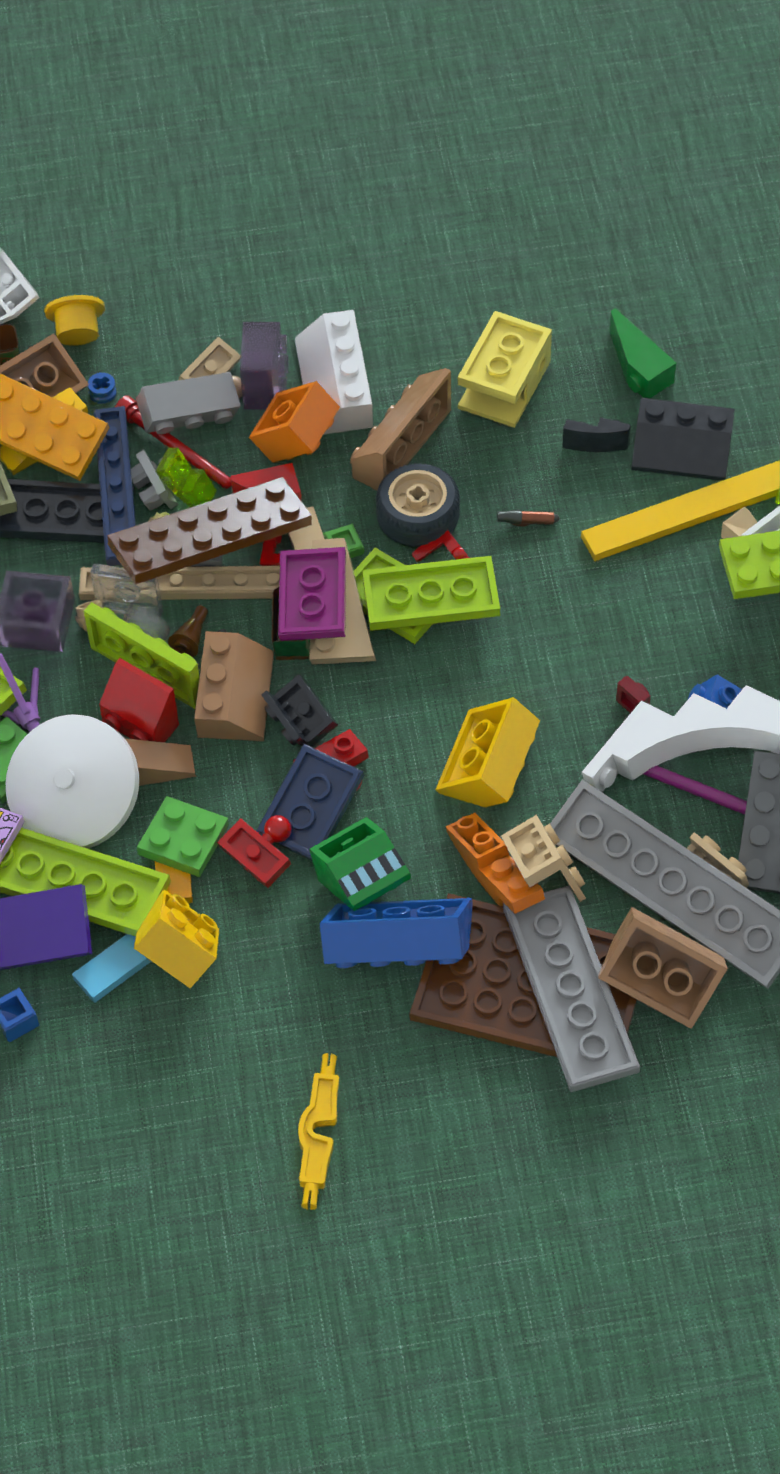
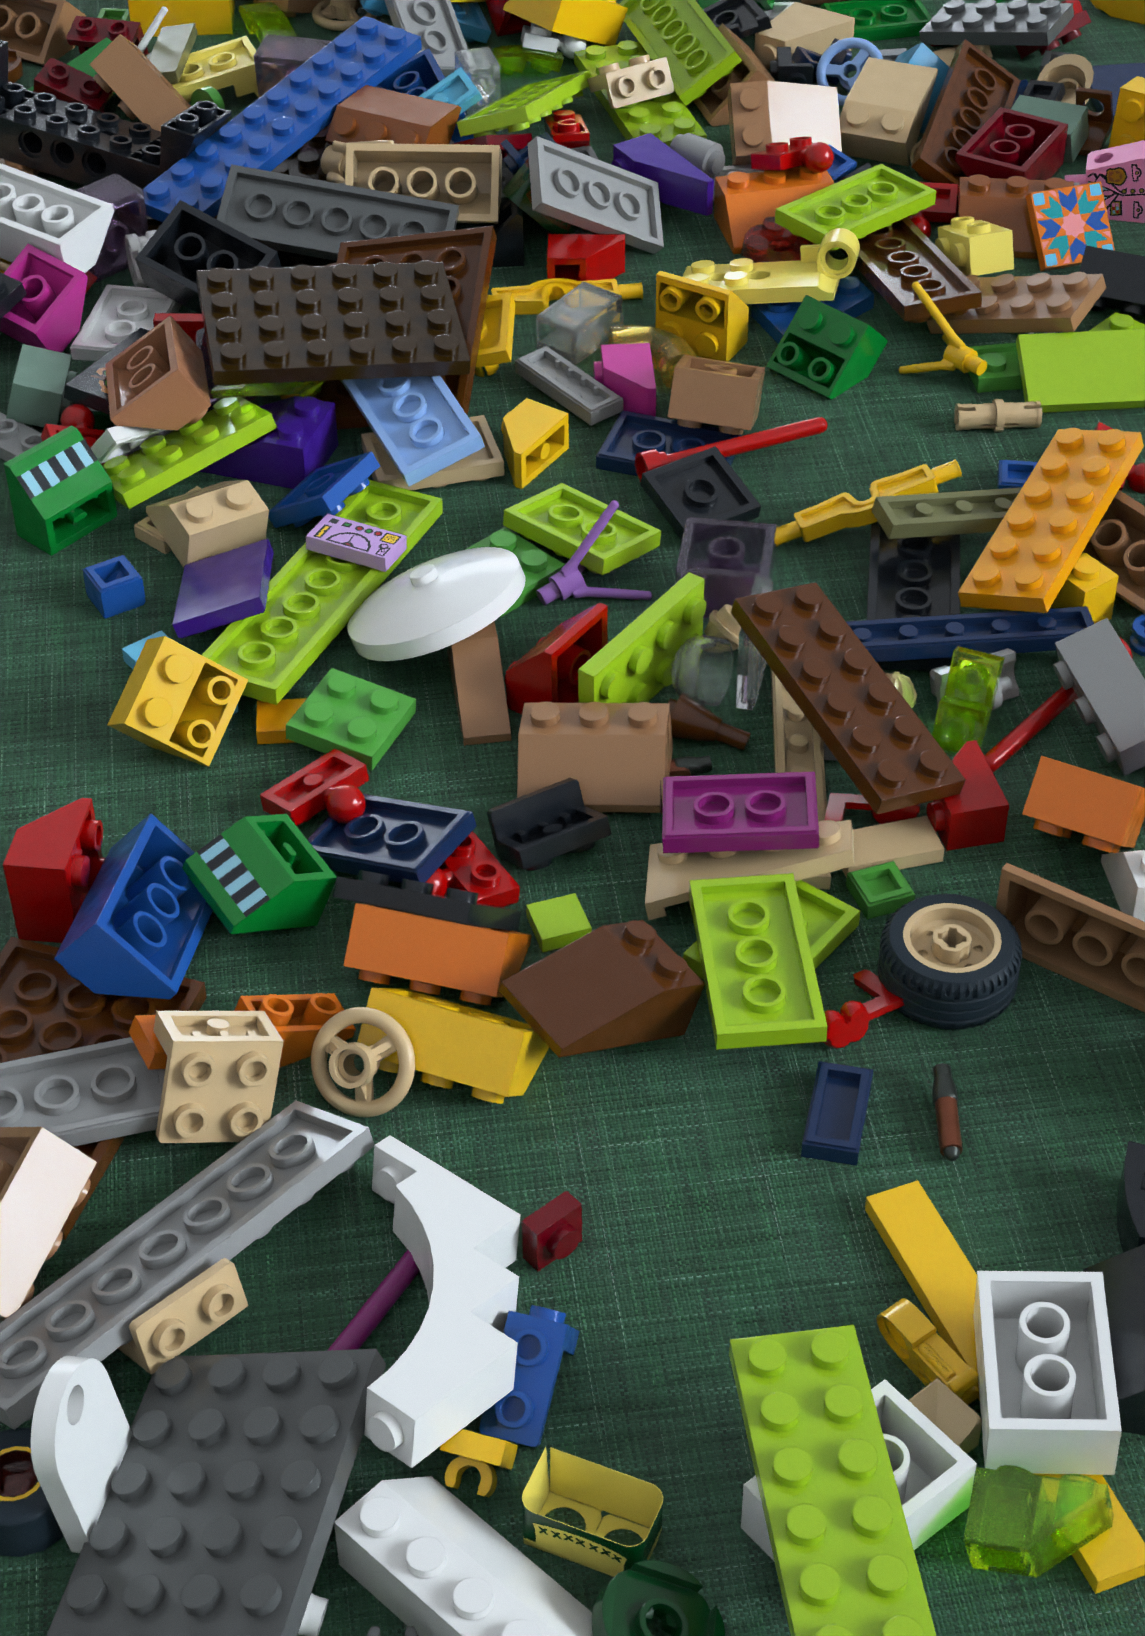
camera: 90 degrees right, 15 degrees down
(361, 983) = (53, 870): none -> red slope
(377, 709) = (557, 921): none -> lime tile
(383, 767) = (418, 899): none -> black wing
(410, 767) = (433, 952): none -> orange slope
(459, 668) = (606, 991): none -> reddish brown slope
(522, 793) = (343, 1068): none -> tan piece
(527, 569) = (837, 1113): none -> dark blue tile
(699, 531) = (924, 1351): none -> yellow piece
(725, 471) = (1046, 1372): none -> white brick

